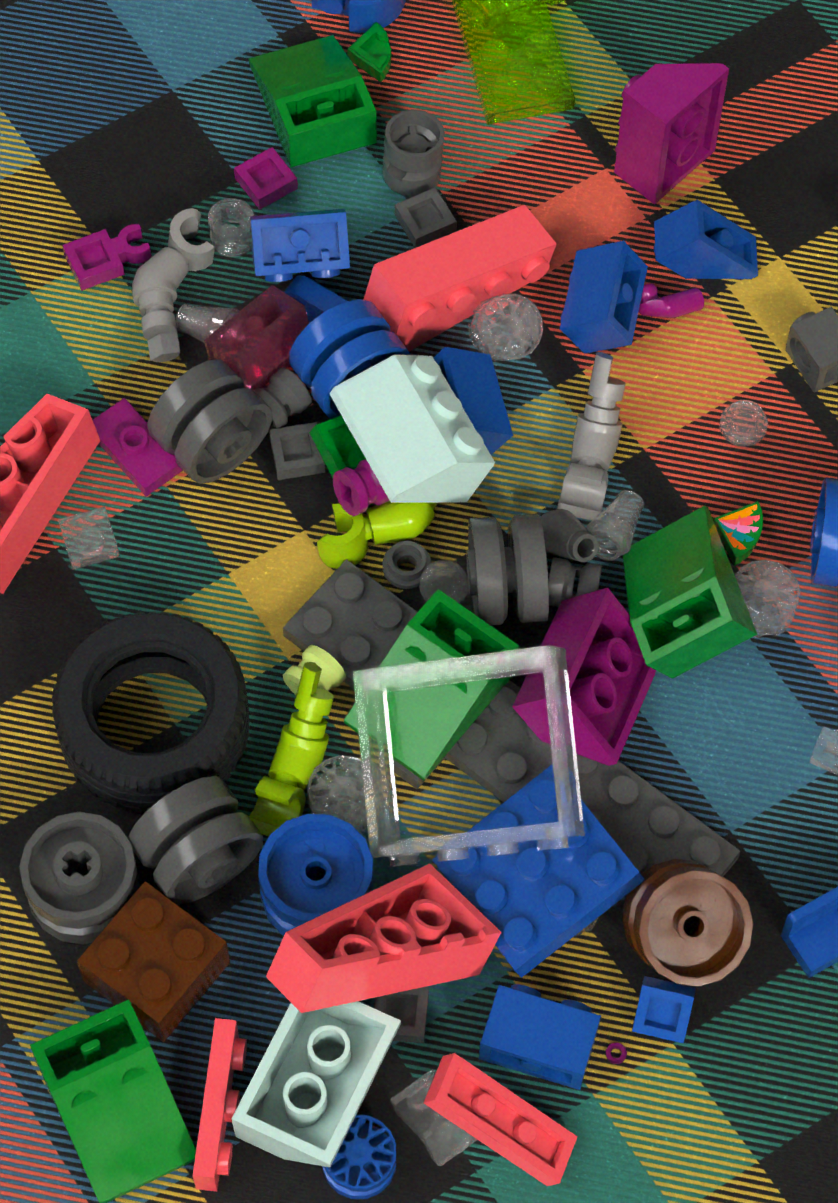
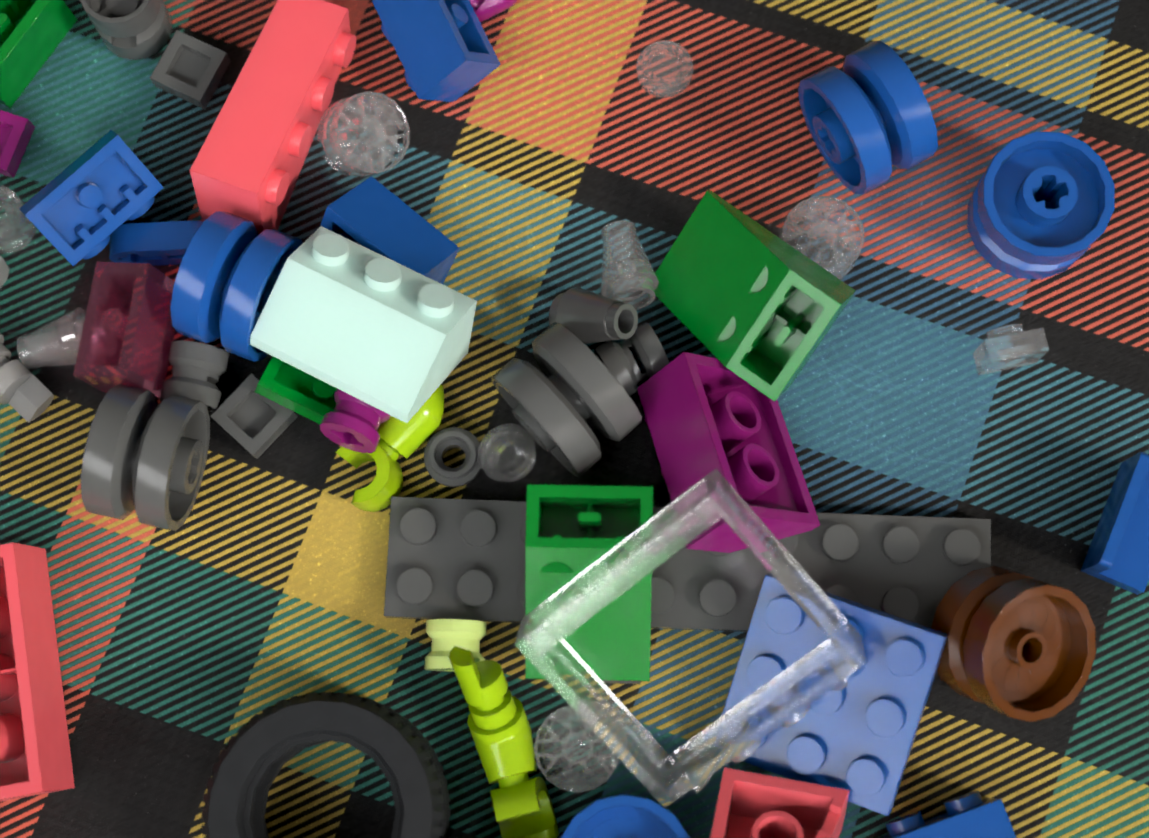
camera: 30 degrees left, 15 degrees up
(88, 538) = (115, 665): clear plate -> none
(128, 443) = (63, 526): magenta plate -> none
(593, 443) = (543, 199): light grey piece -> none
(616, 1046) = (1021, 797): magenta piece -> none
(663, 1009) = (1042, 742): blue plate -> none
(740, 531) = (745, 183): tile -> none

